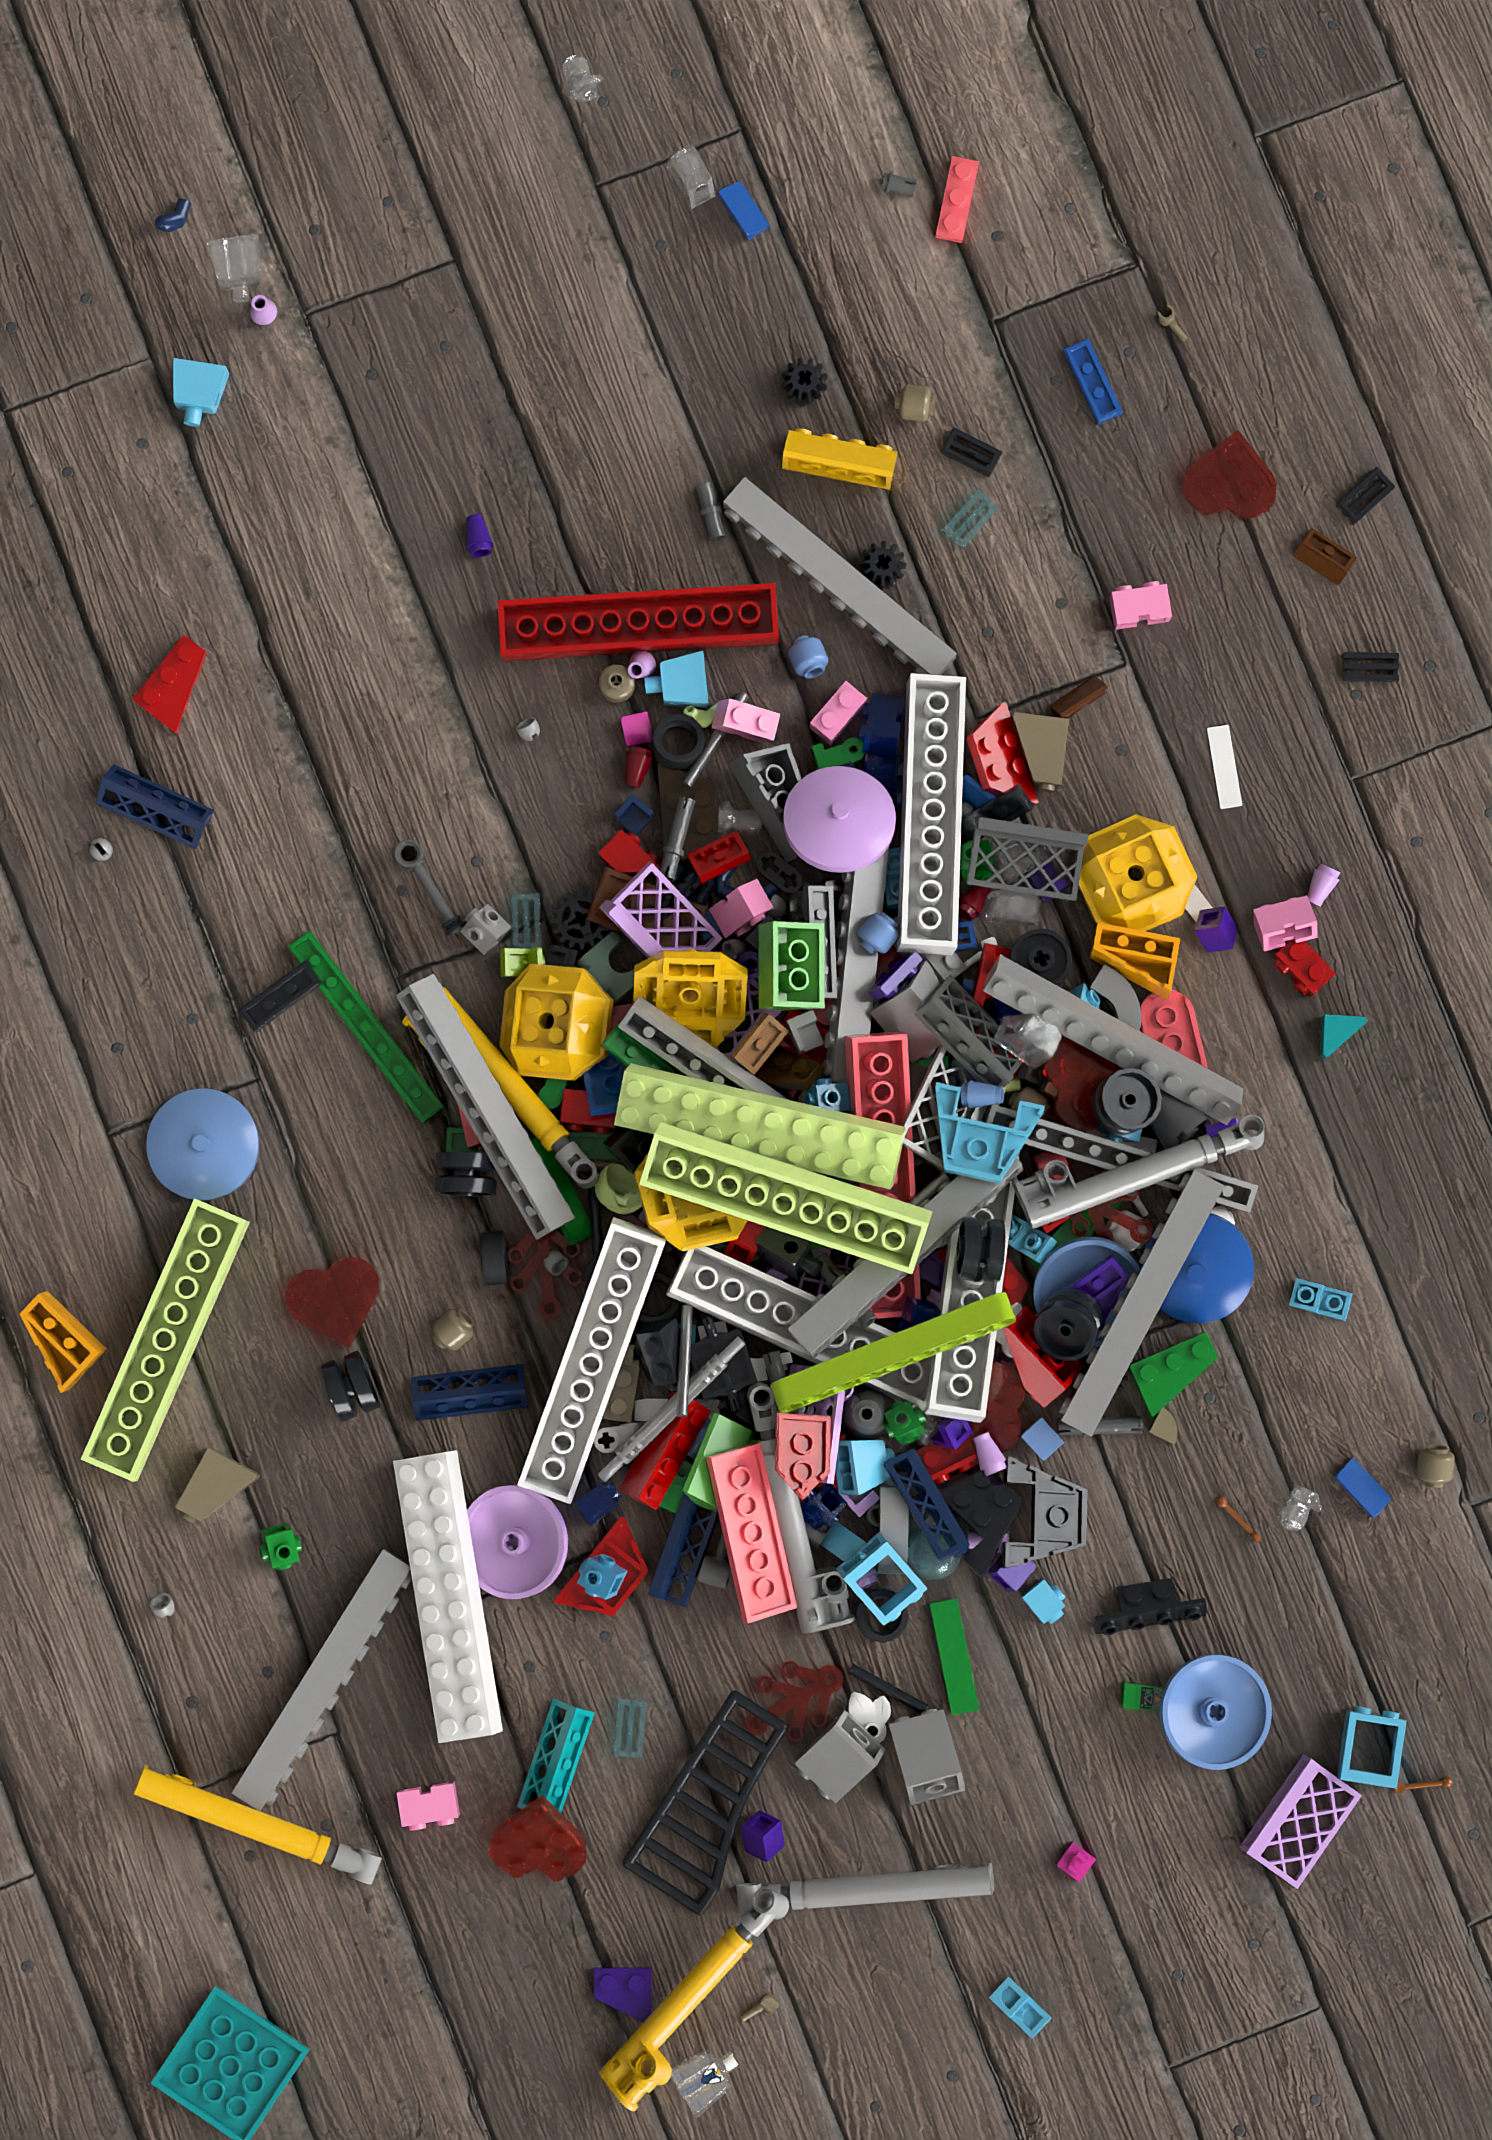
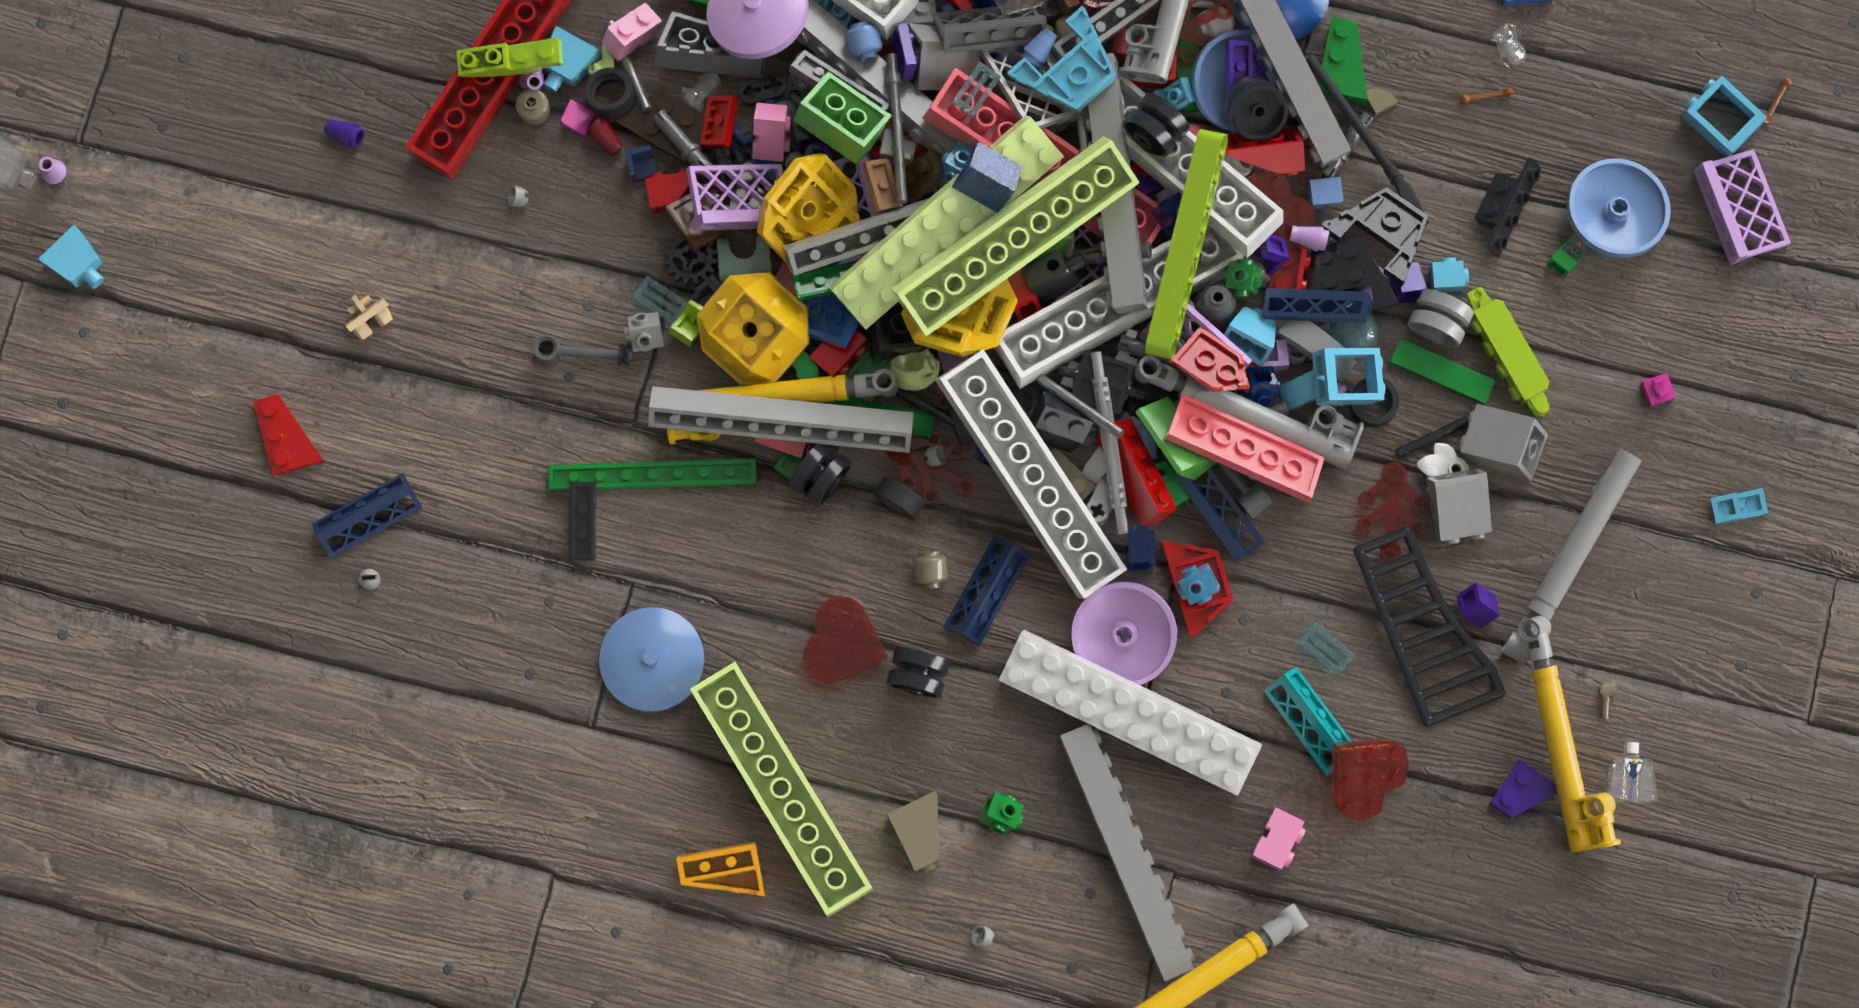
camera: 50 degrees left, 5 degrees down
(316, 674) = (358, 323): none -> tan hips
(638, 634) = (509, 59): none -> lime slope
(820, 1137) = (988, 177): none -> slope
(861, 985) = (893, 81): none -> flat silver bar
(875, 1066) = (964, 106): none -> clear light blue tile
(992, 1623) = (1440, 318): none -> light grey wheel
(1015, 1704) = (1510, 351): none -> lime hinge
(1097, 1505) = (1403, 188): none -> black piece

